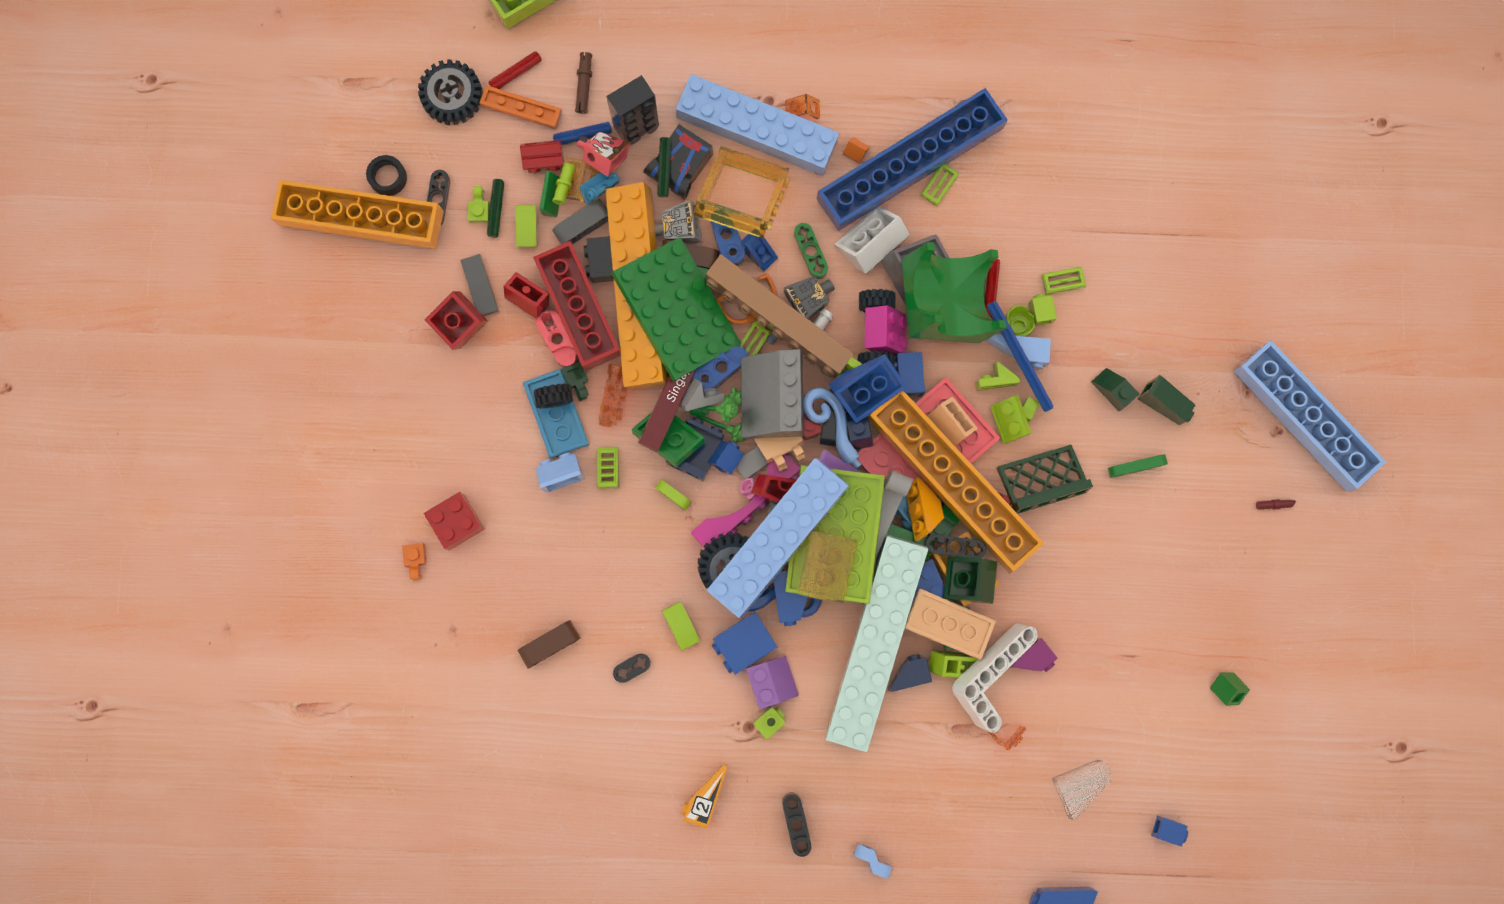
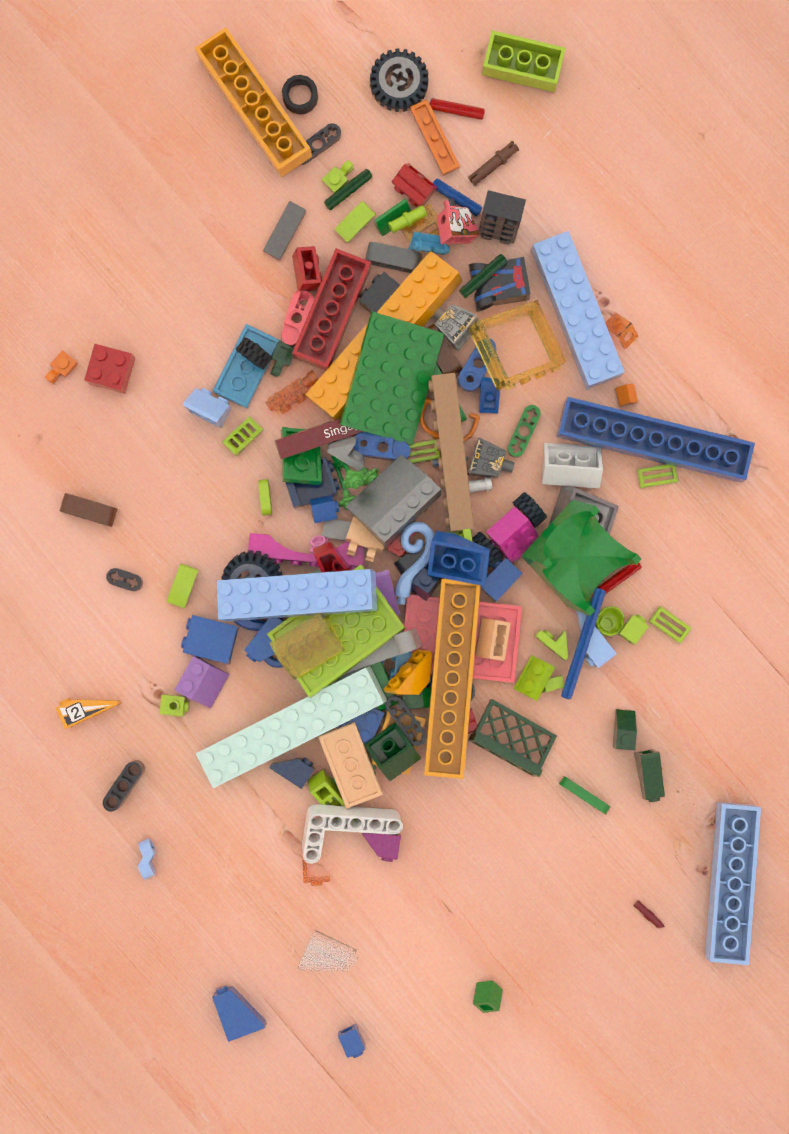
camera: 50 degrees right, 5 degrees up
(456, 320) = (244, 238): red brick -> none

